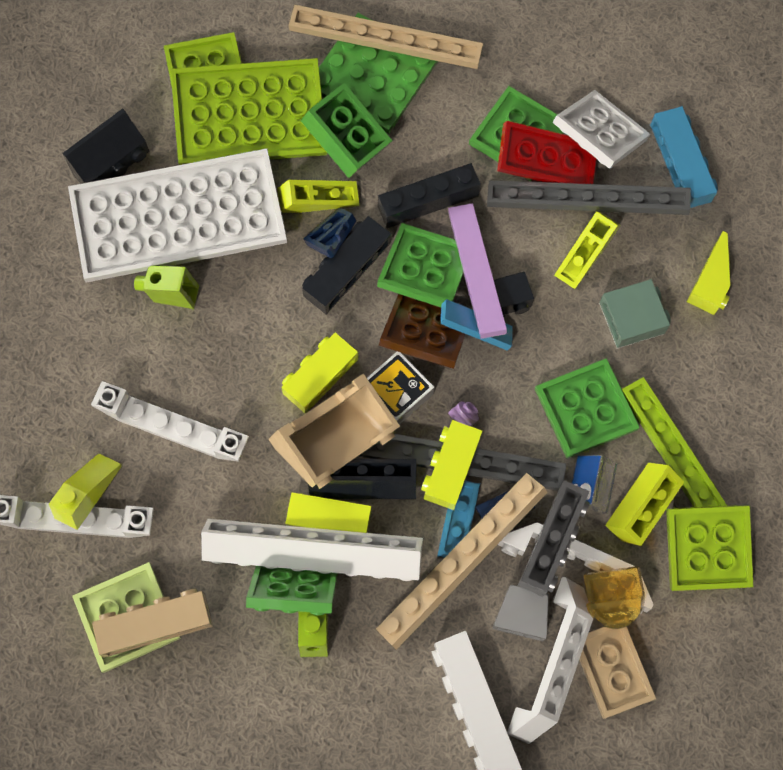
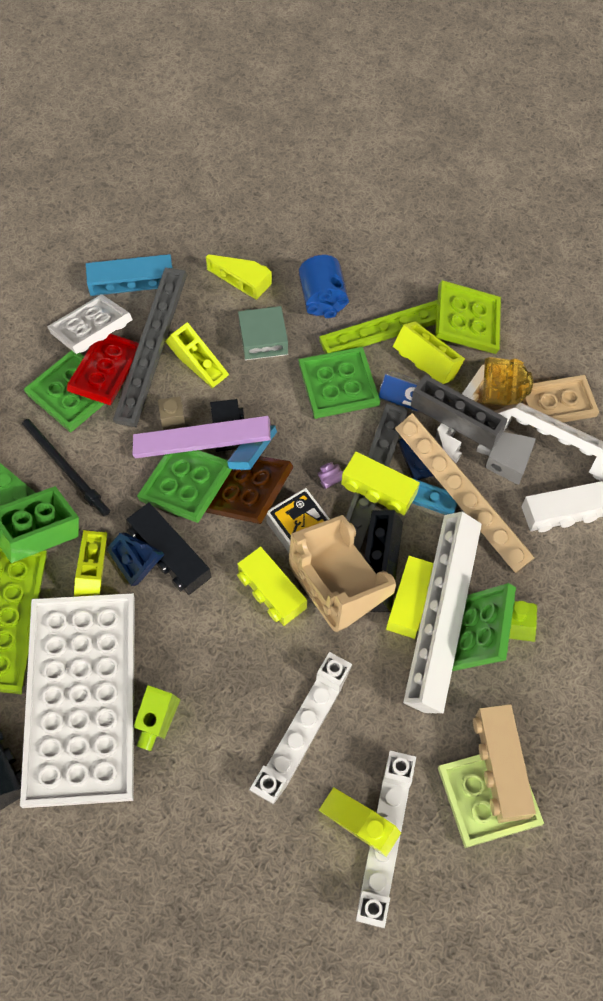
camera: 80 degrees left, 10 degrees down
(397, 180) = (90, 495): none -> black bar
(429, 195) = (116, 469): black brick -> none
(505, 236) = (171, 413): none -> dark tan brick
(712, 368) = (323, 286): none -> blue cylinder

